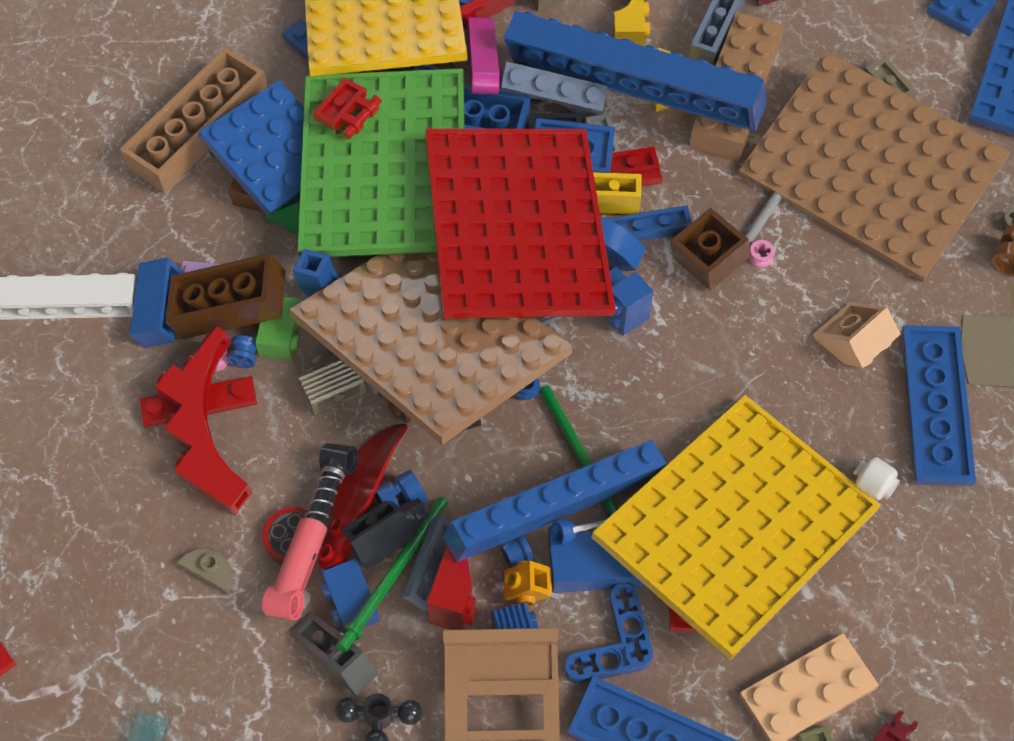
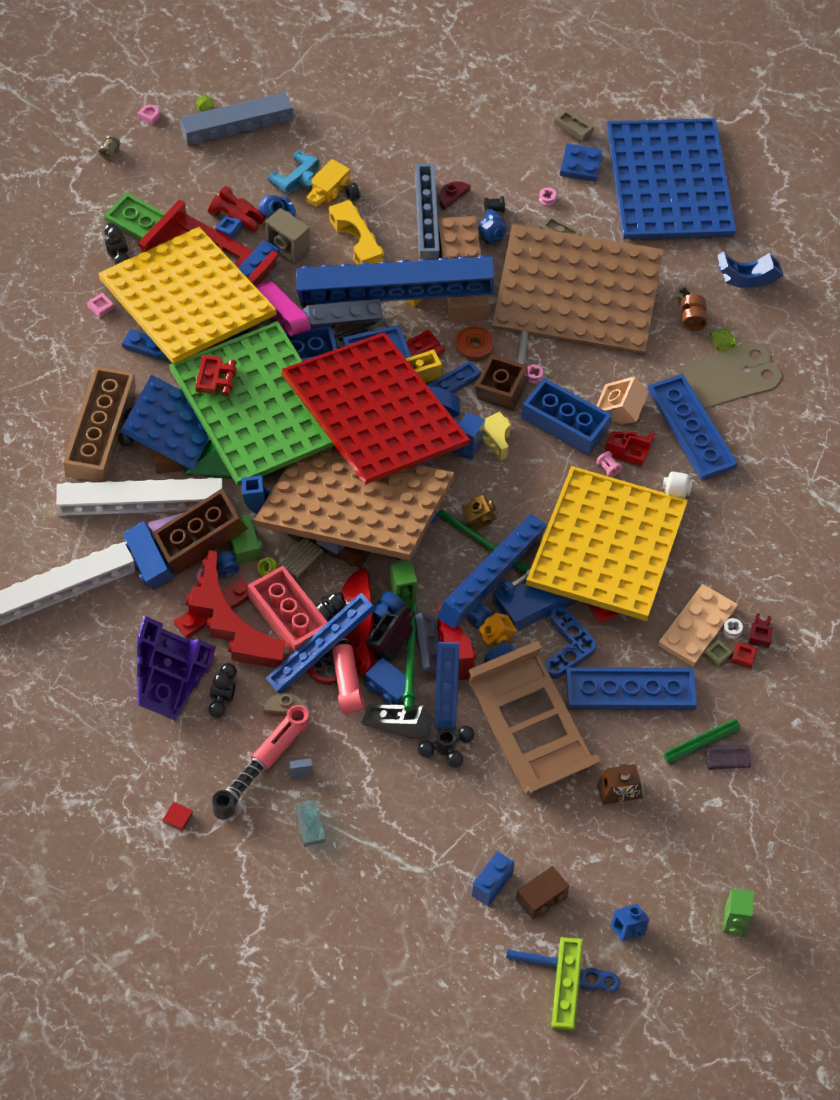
camera: 30 degrees left, 5 degrees down
(87, 457) = (168, 668): none -> dark purple wedge
(134, 631) = (262, 760): none -> piece
(141, 514) = (222, 690): none -> black piece
(175, 664) = (301, 768): none -> sand blue tile
(186, 222) = (133, 496): none -> white brick
(277, 445) = (286, 608): none -> coral brick
(287, 506) = (320, 643): none -> blue plate
(288, 375) = (264, 564): none -> lime plate
(321, 463) = (329, 607): none -> black wheel
(412, 635) = (446, 685): none -> blue tile
(437, 468) = (403, 581): none -> bright green brick
(591, 410) = (480, 511): none -> pearl gold brick
(670, 310) = (495, 433): none -> light yellow arch
(706, 173) = (477, 334): none -> dark orange tile
(771, 326) = (566, 416): none -> blue brick
(797, 412) = (612, 468): none -> bright pink bush
(803, 47) = (492, 227): none -> blue head
(821, 21) = (495, 204): none -> black bush
(838, 398) = (629, 446): none -> red slope
(857, 708) = (731, 623): none -> white bush
(896, 27) = (547, 191): none -> bright pink bush

